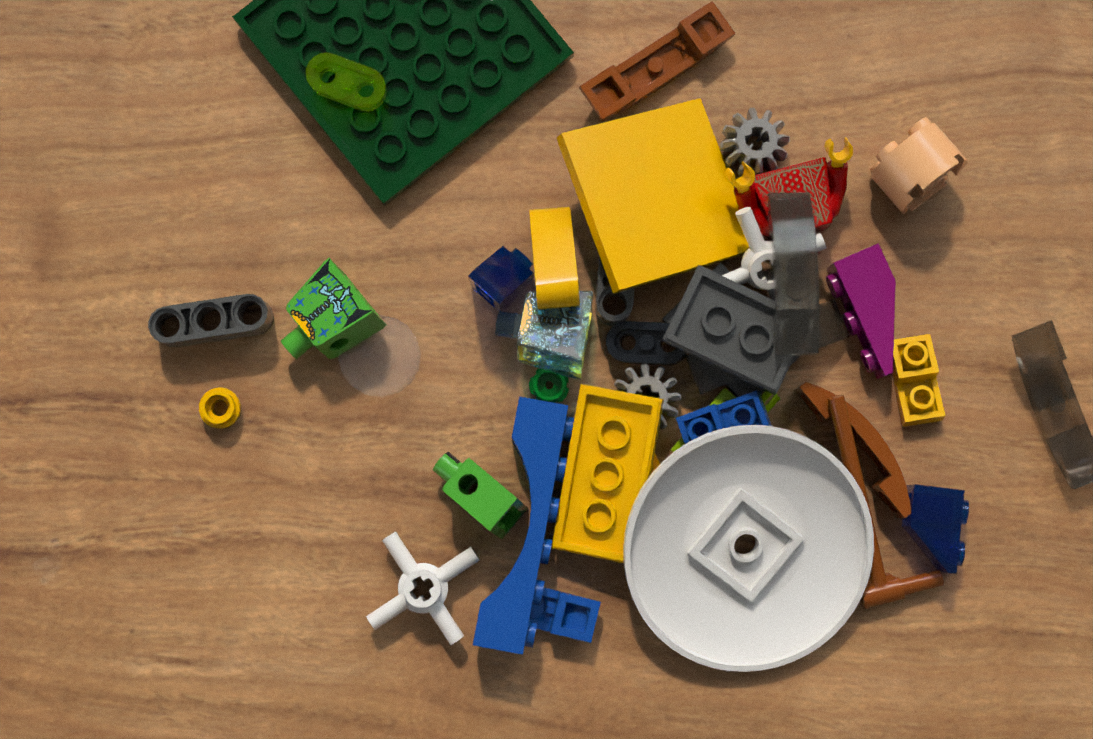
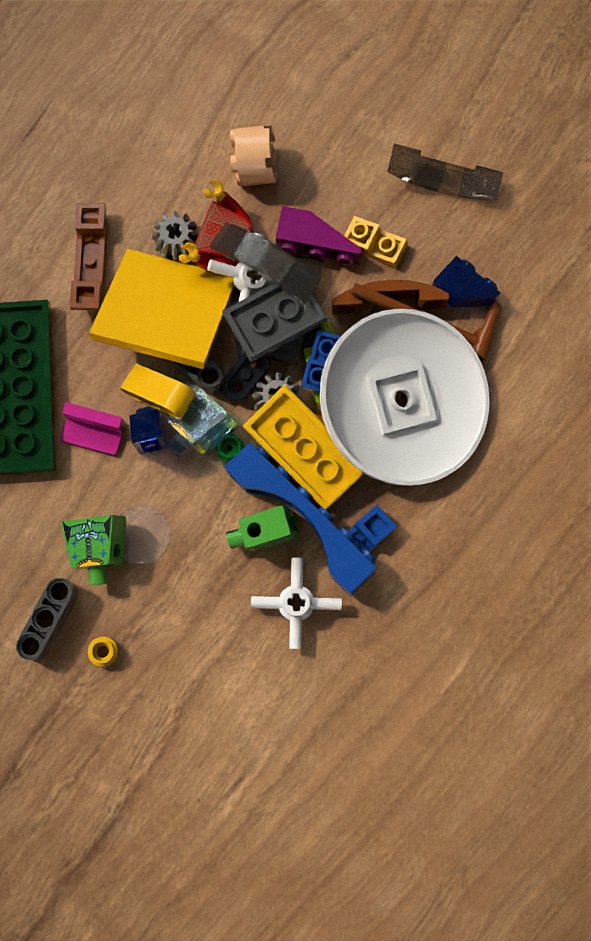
camera: 50 degrees left, 5 degrees down
(460, 214) = (92, 429): none -> dark pink panel

